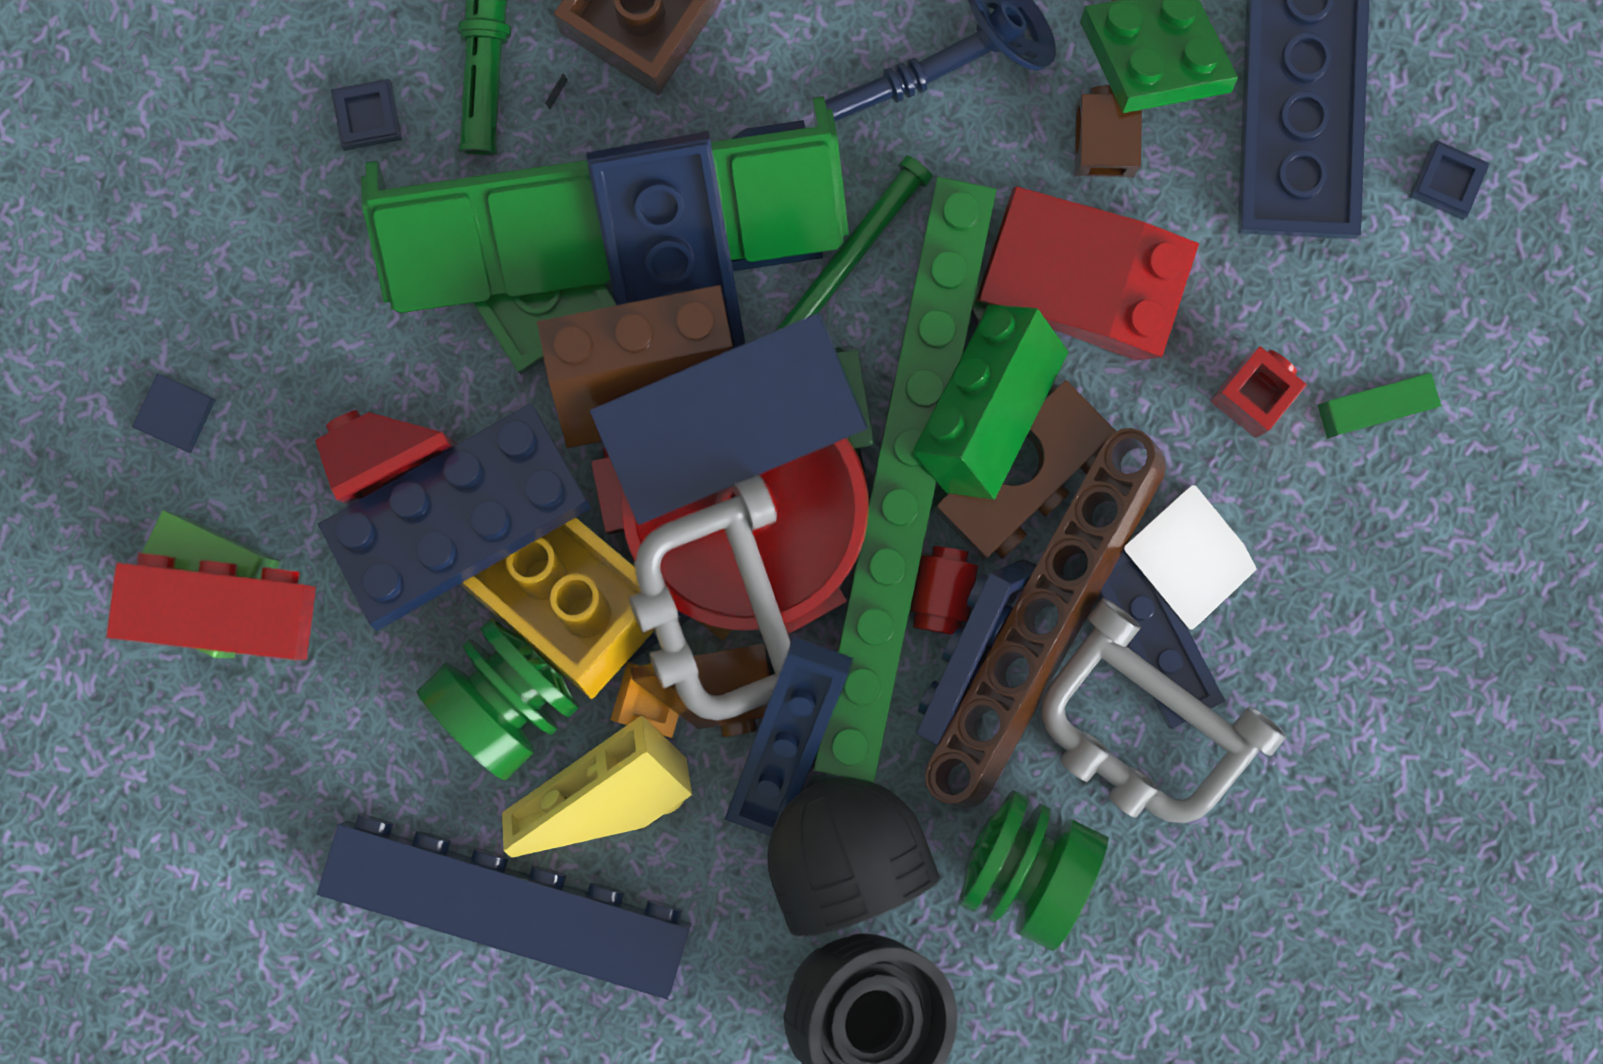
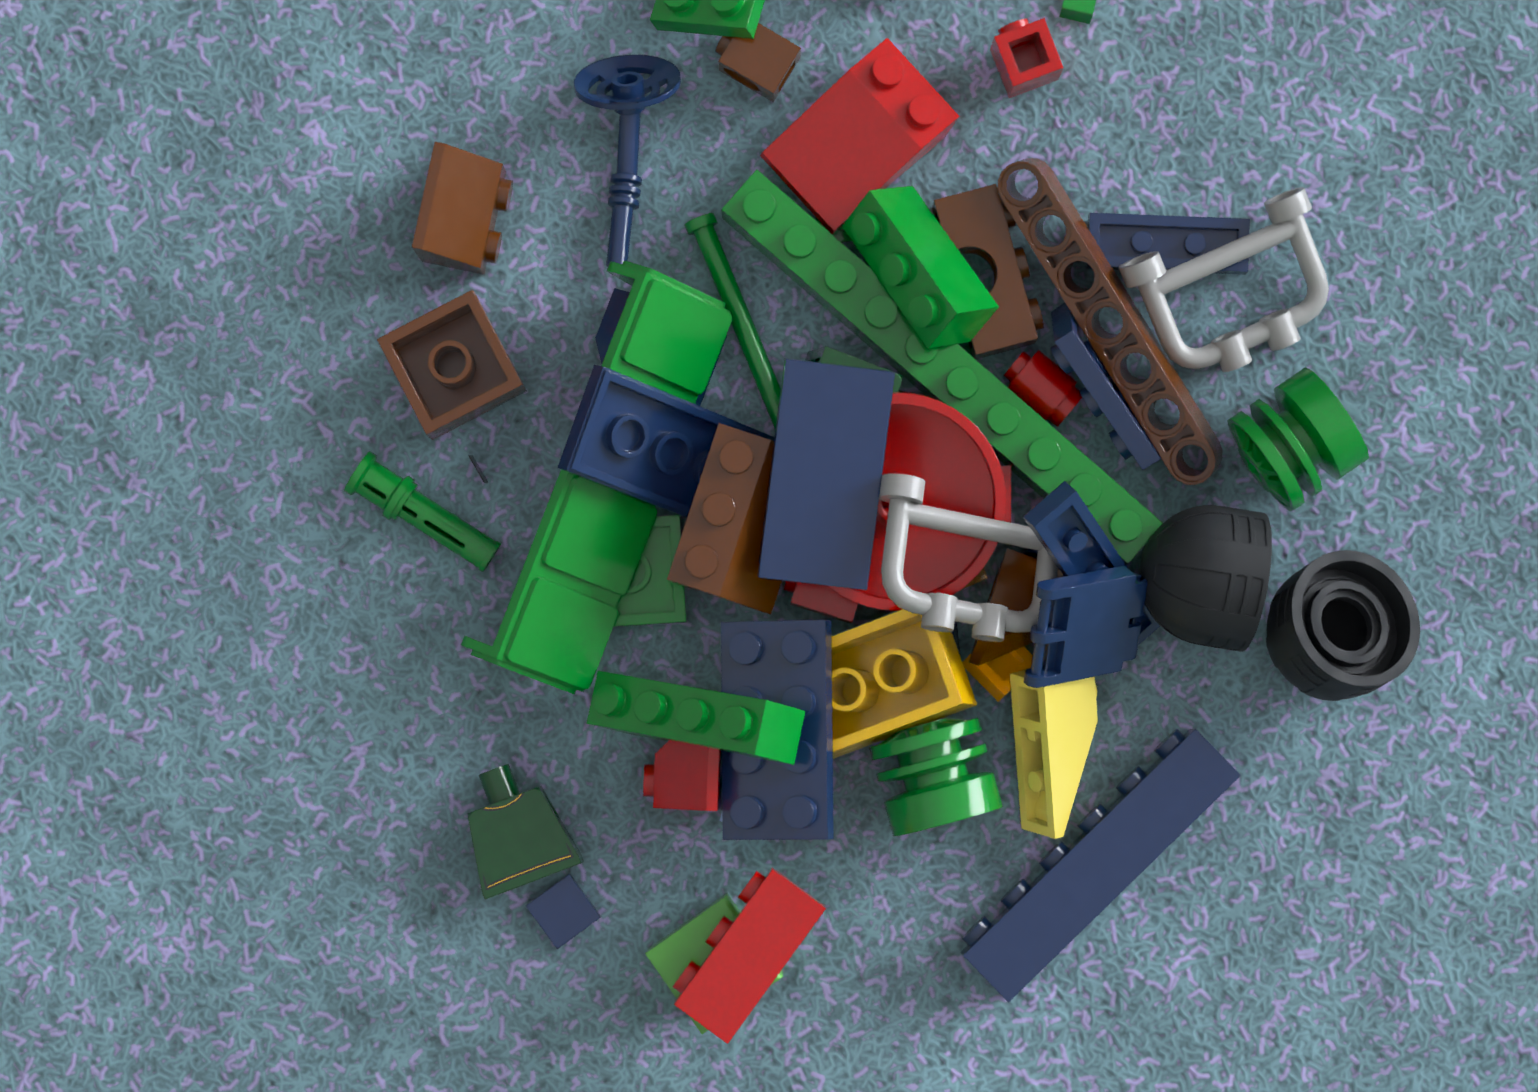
camera: 55 degrees left, 0 degrees up
(219, 327) = (517, 835): none -> dark green torso
(366, 114) = (411, 628): dark blue tile -> none
(419, 431) = (696, 717): none -> green arch
(725, 761) = (1085, 625): none -> dark blue plate
(1191, 557) = (1123, 181): white sticker -> none

